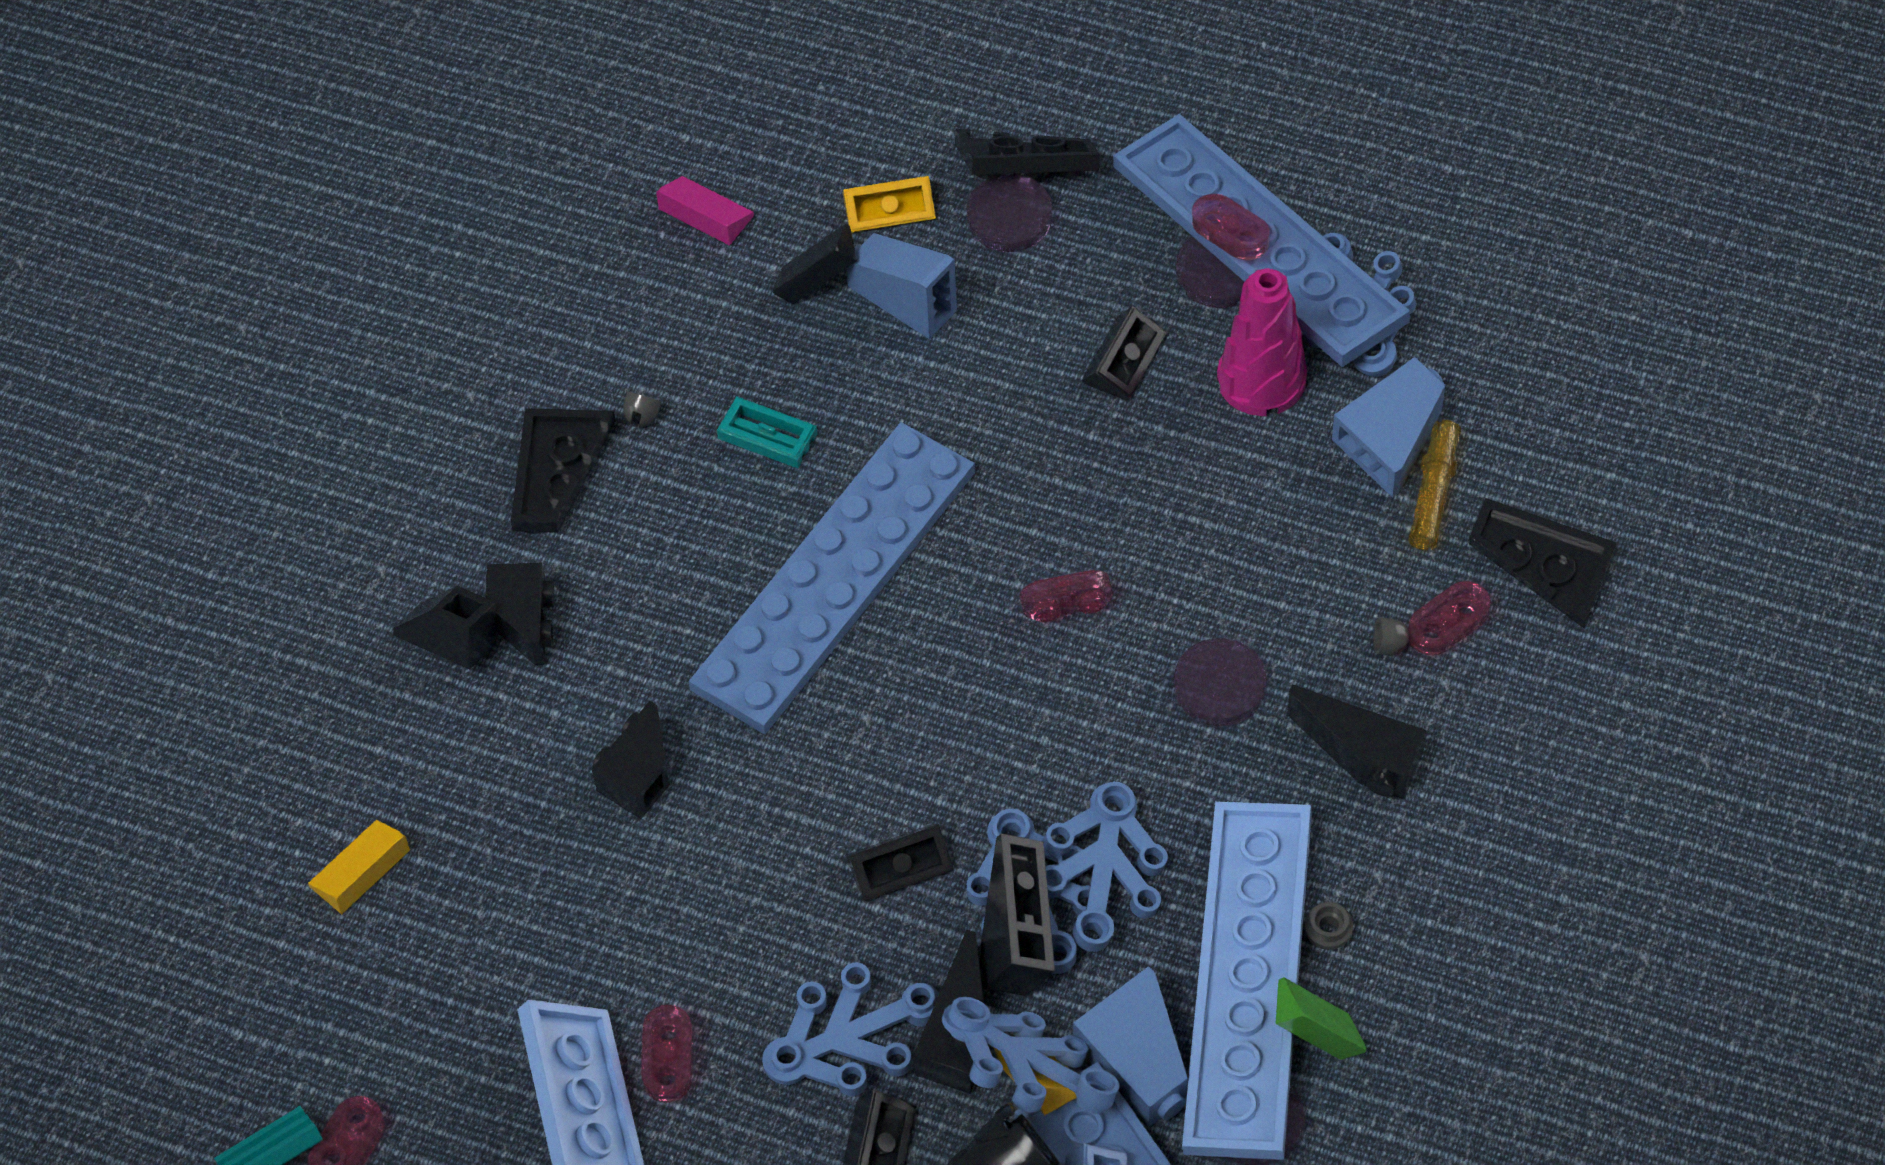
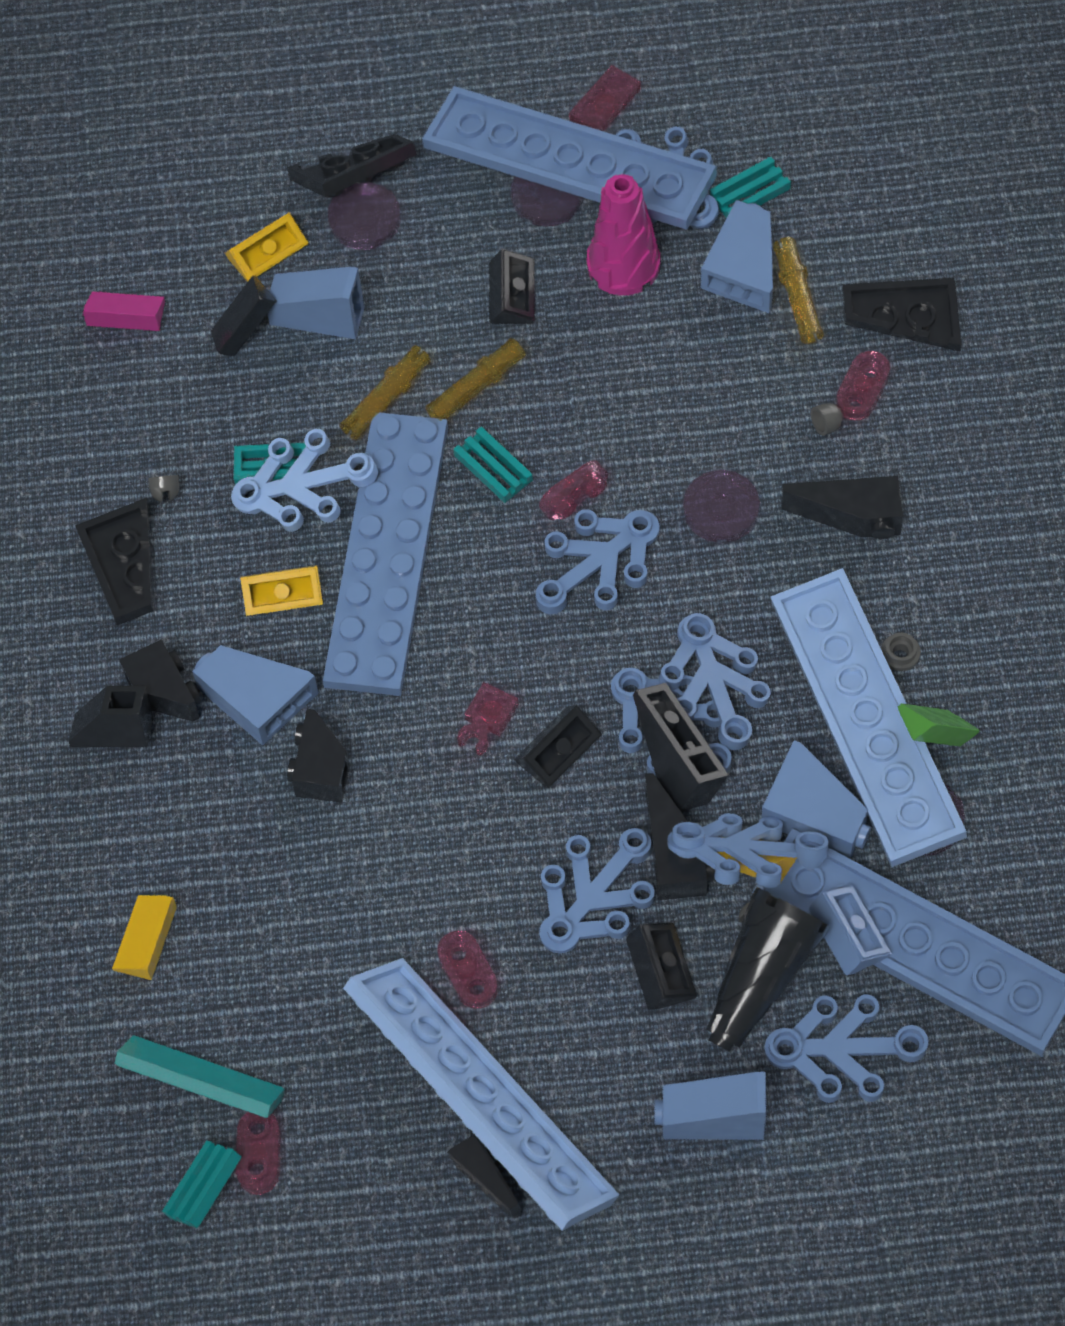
camera: 25 degrees left, 5 degrees up
(329, 1036) = (199, 1076): none -> teal tile
(613, 660) = (254, 690): none -> medium blue slope
(701, 568) = (281, 590): none -> yellow slope
(780, 460) = (298, 481): none -> light blue plant
(841, 792) = (487, 713): none -> clear pink plate
(924, 407) = (396, 380): none -> clear yellow pin
(988, 502) = (503, 455): none -> teal tile
(1028, 435) = (487, 371): none -> clear yellow pin
(1056, 678) = (599, 555): none -> medium blue plant
(1236, 228) = (552, 156): clear pink plate -> none
(1336, 194) = (605, 99): none -> clear pink plate
(1446, 346) = (748, 182): none -> teal tile

